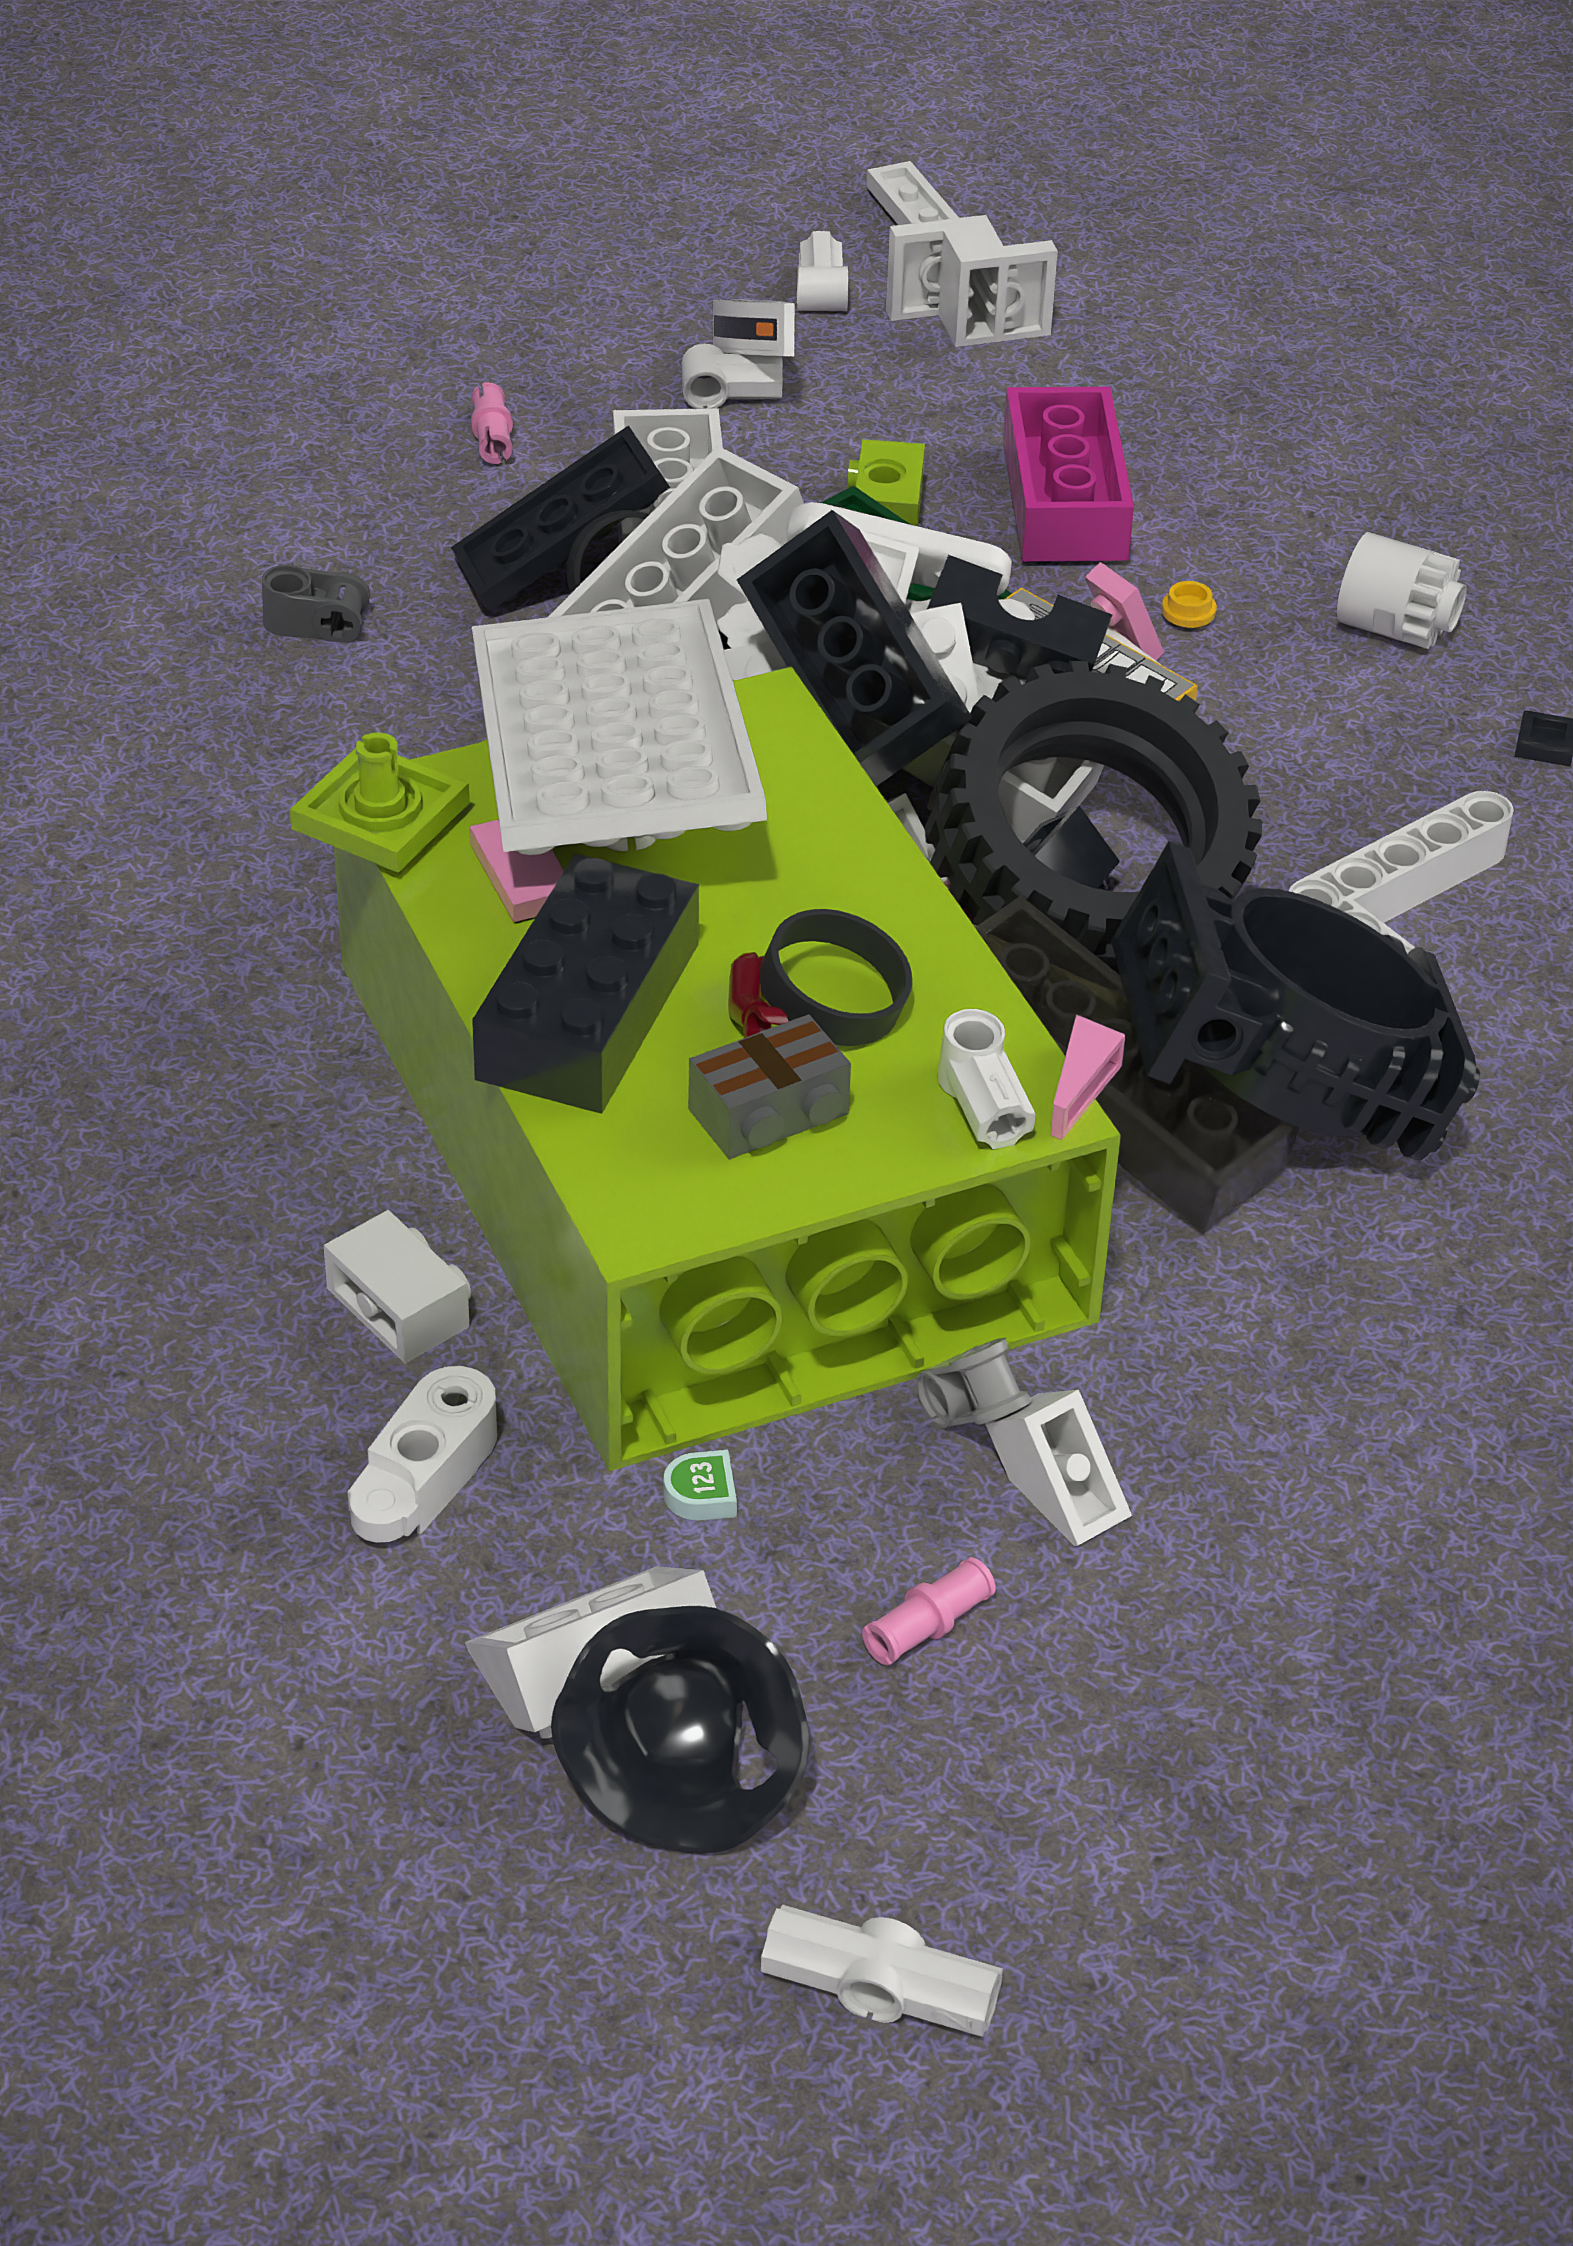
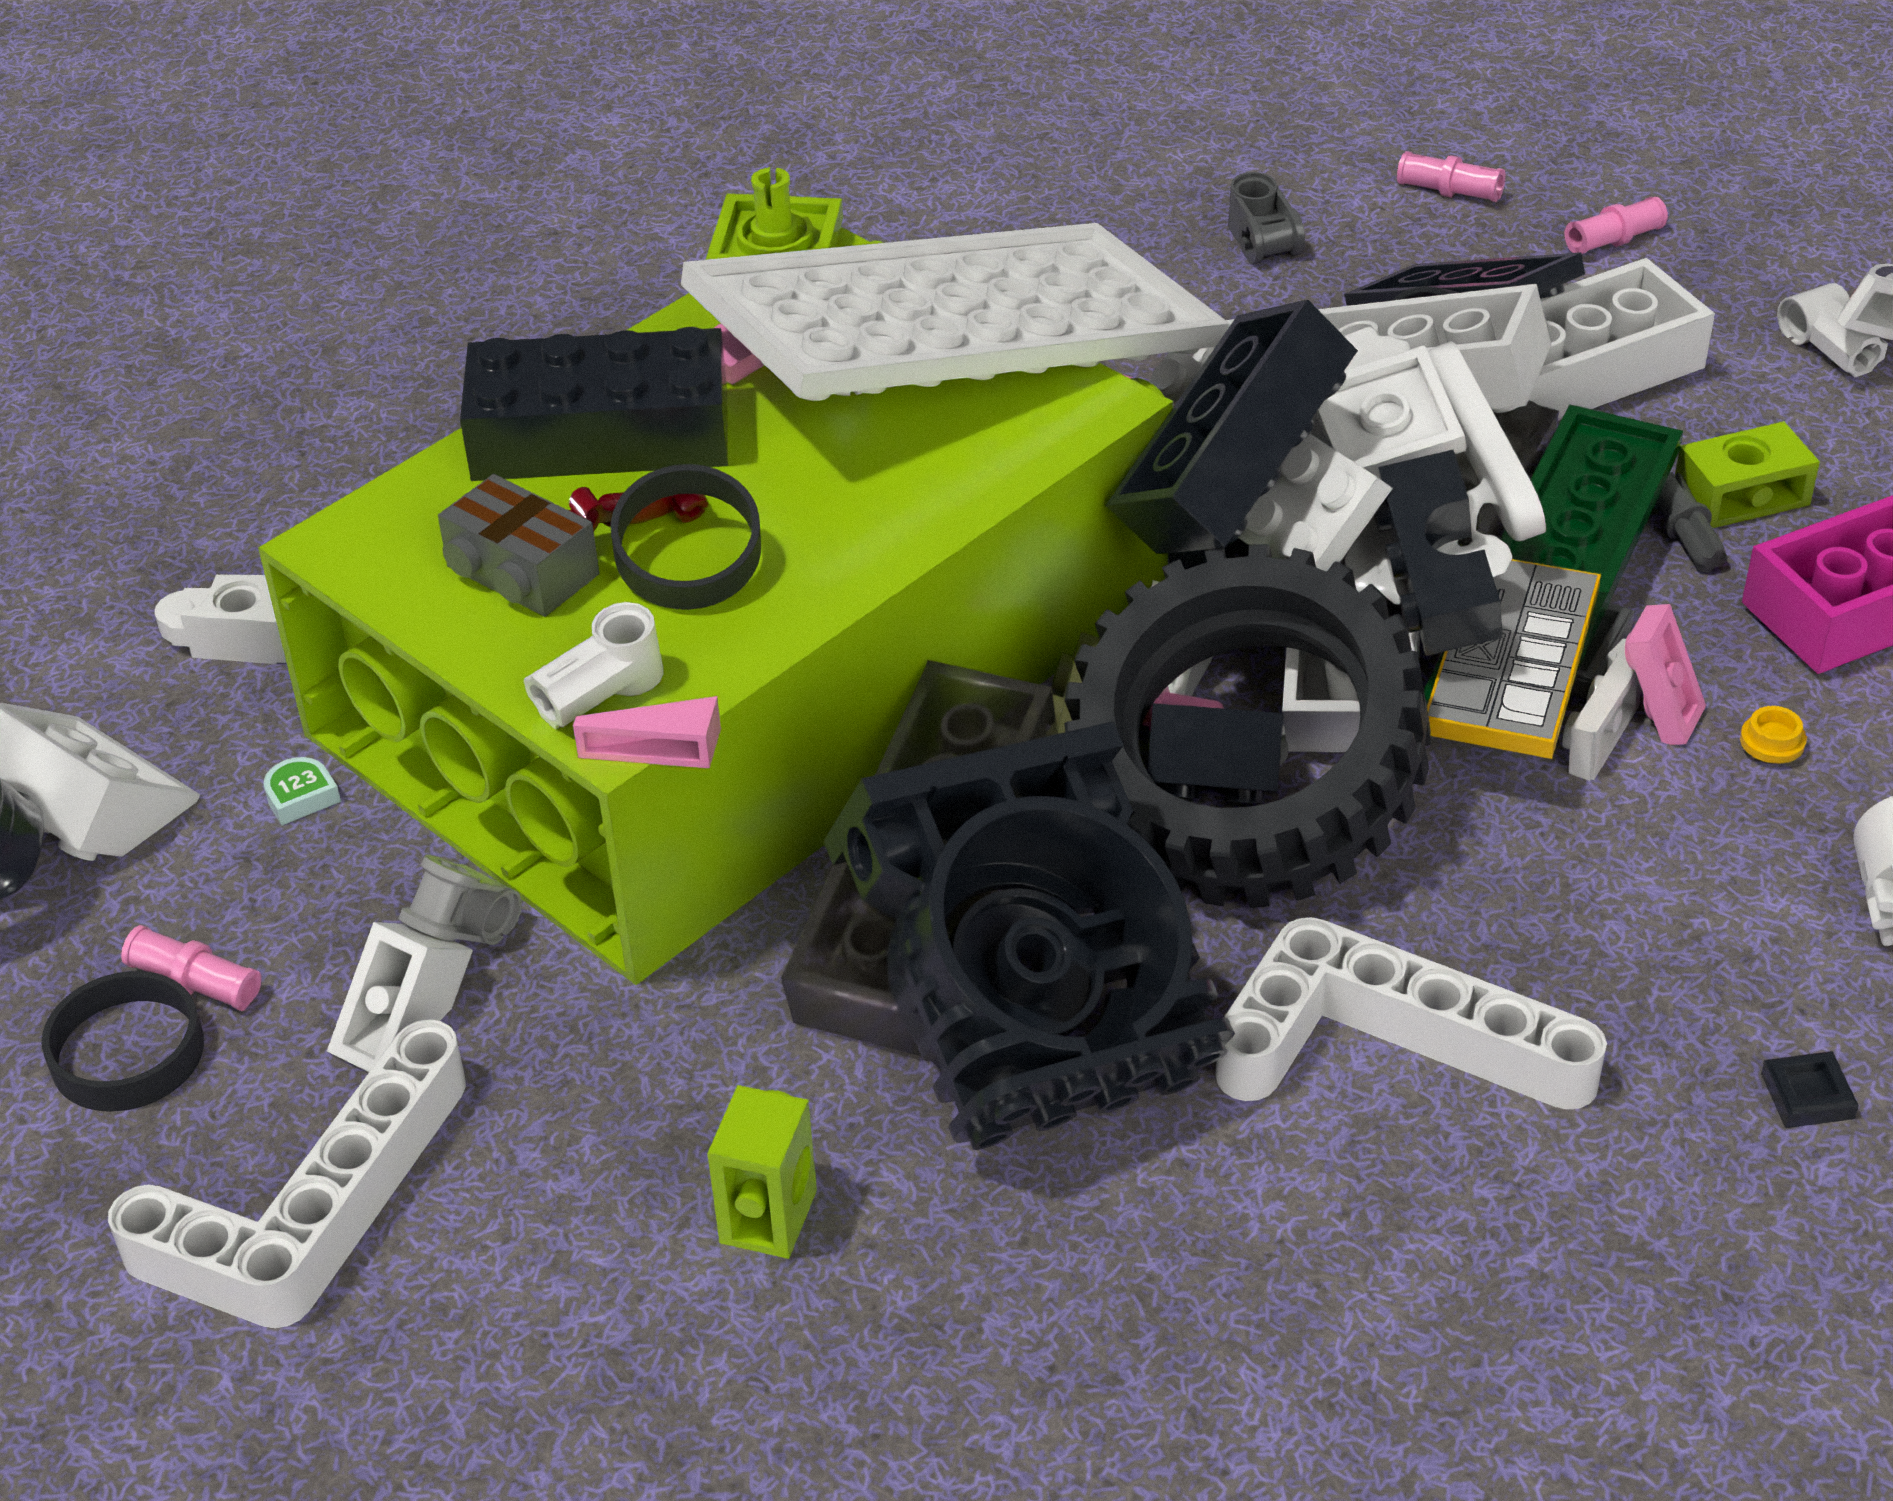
camera: 70 degrees right, 0 degrees up
(336, 478) = (1451, 176): none -> bright pink pin
(1004, 1625) = (138, 1089): none -> black tyre
(1341, 1605) = (286, 1260): none -> white beam
(1417, 1266) = (763, 1171): none -> lime brick

